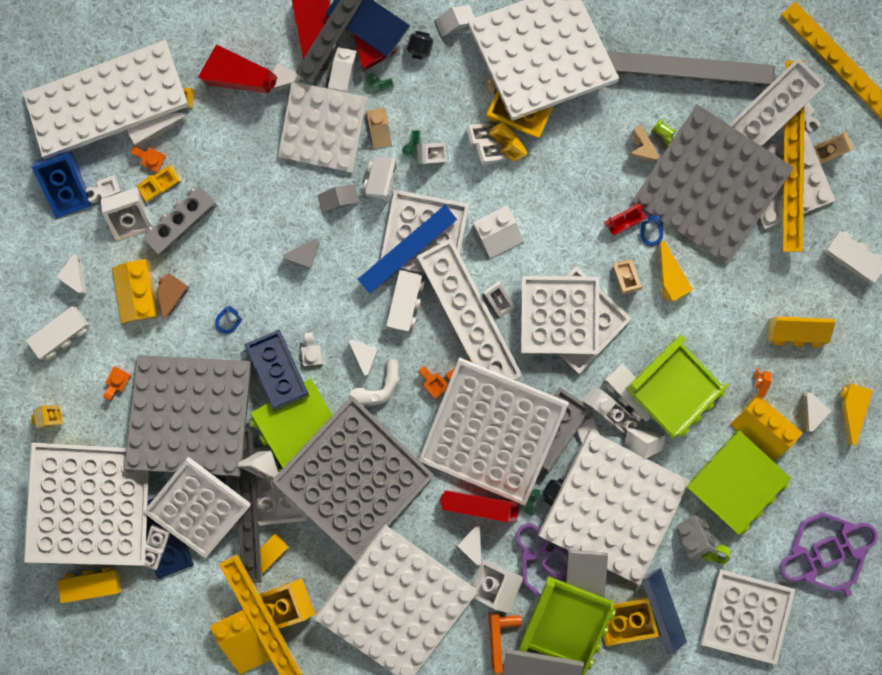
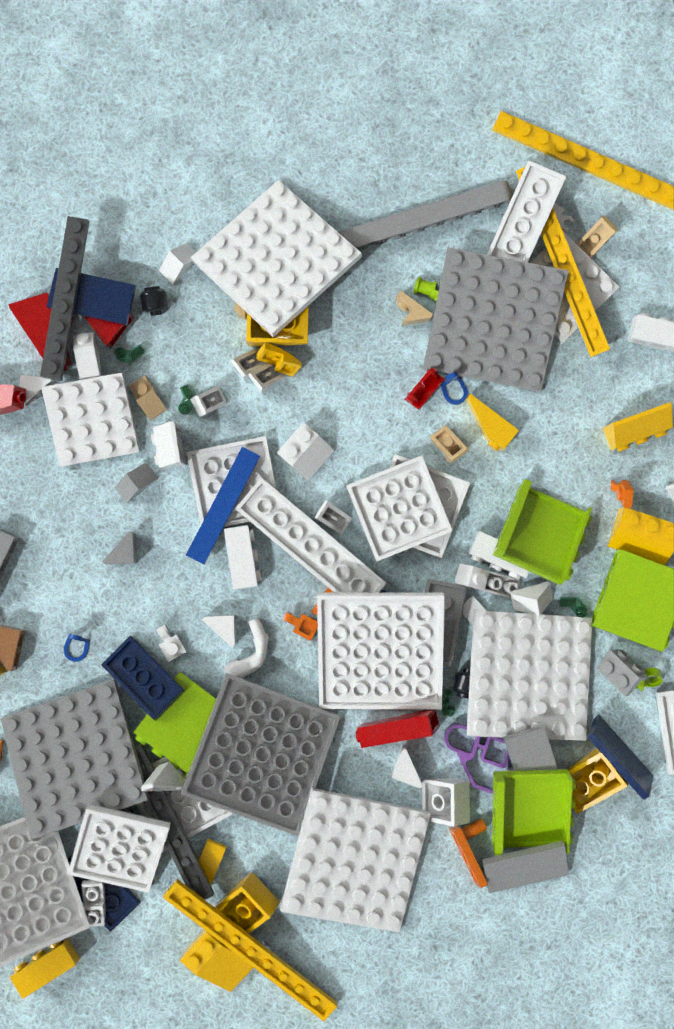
camera: 25 degrees left, 0 degrees up
(680, 463) = (575, 604): none -> clear green arm

